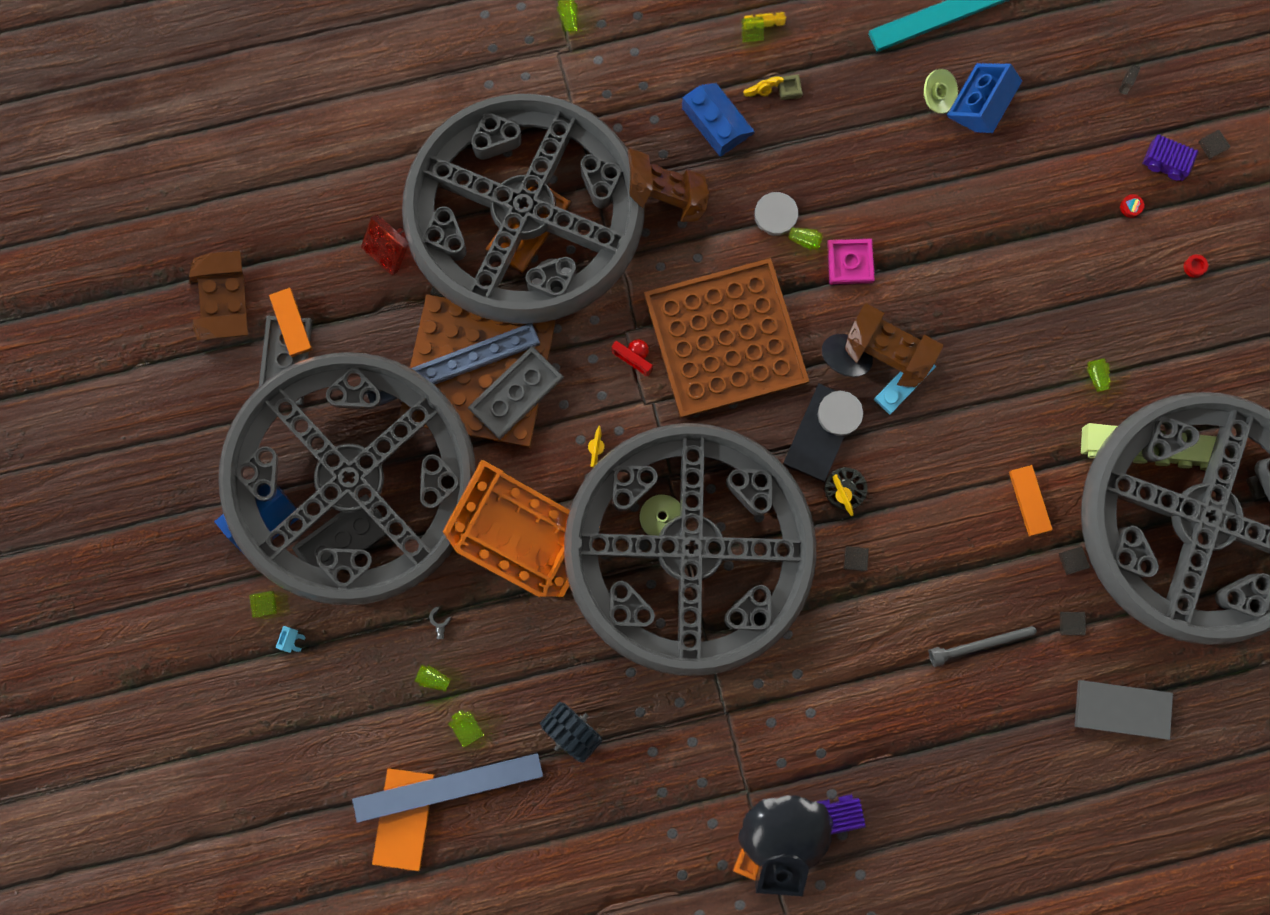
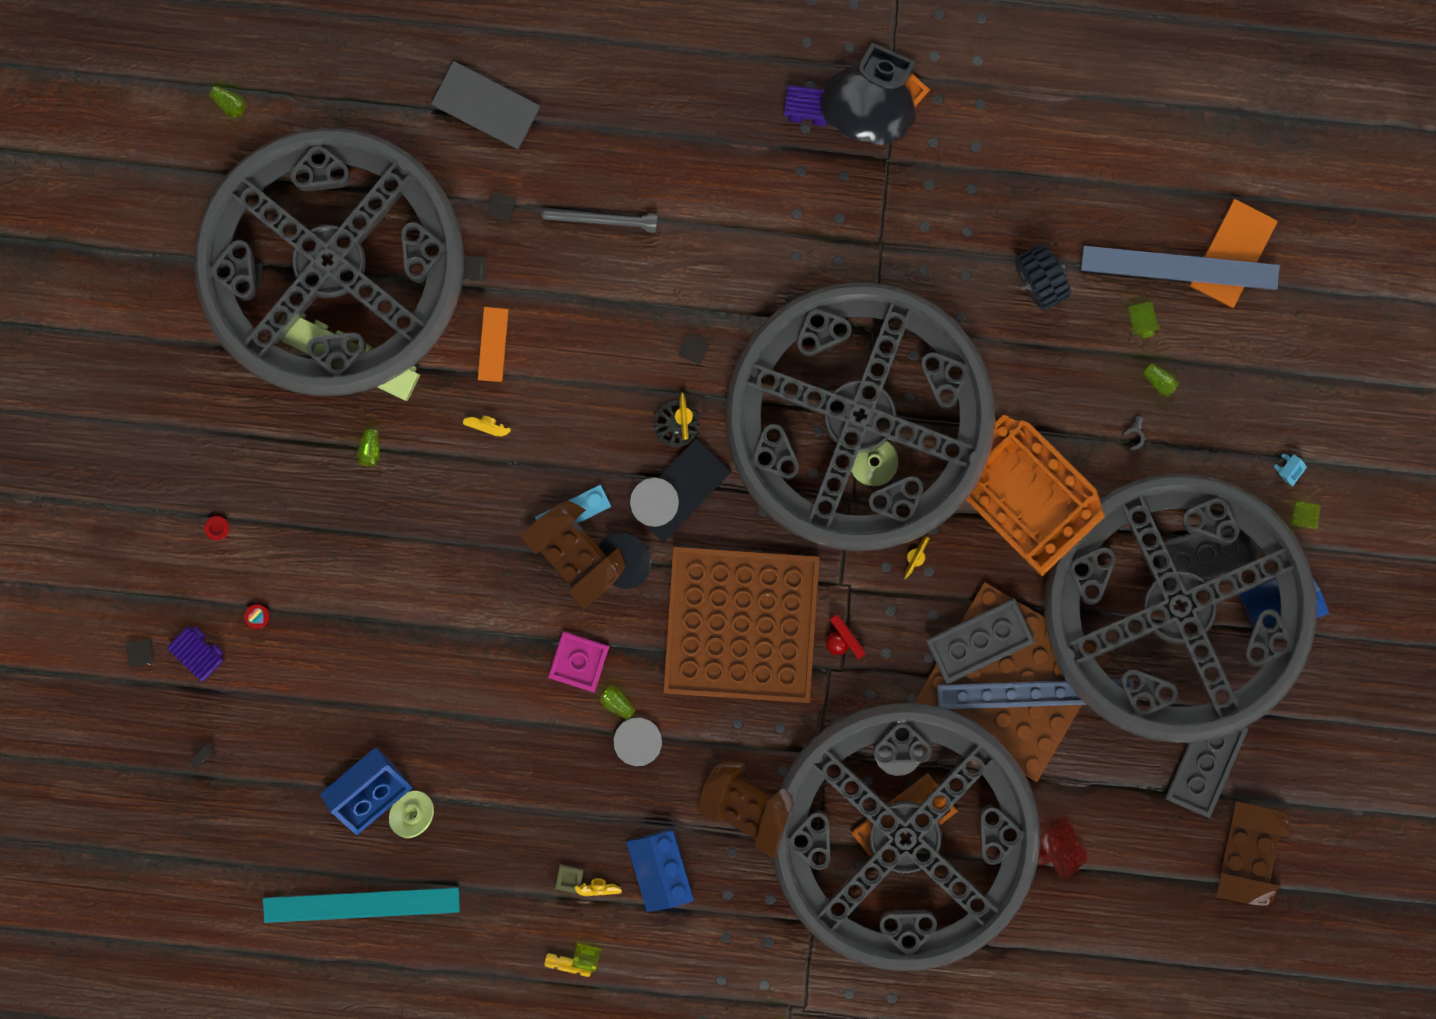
camera: 155 degrees left, 10 degrees up
(290, 322) = (1187, 800): orange tile -> none
(1007, 429) = (486, 425): none -> yellow piece

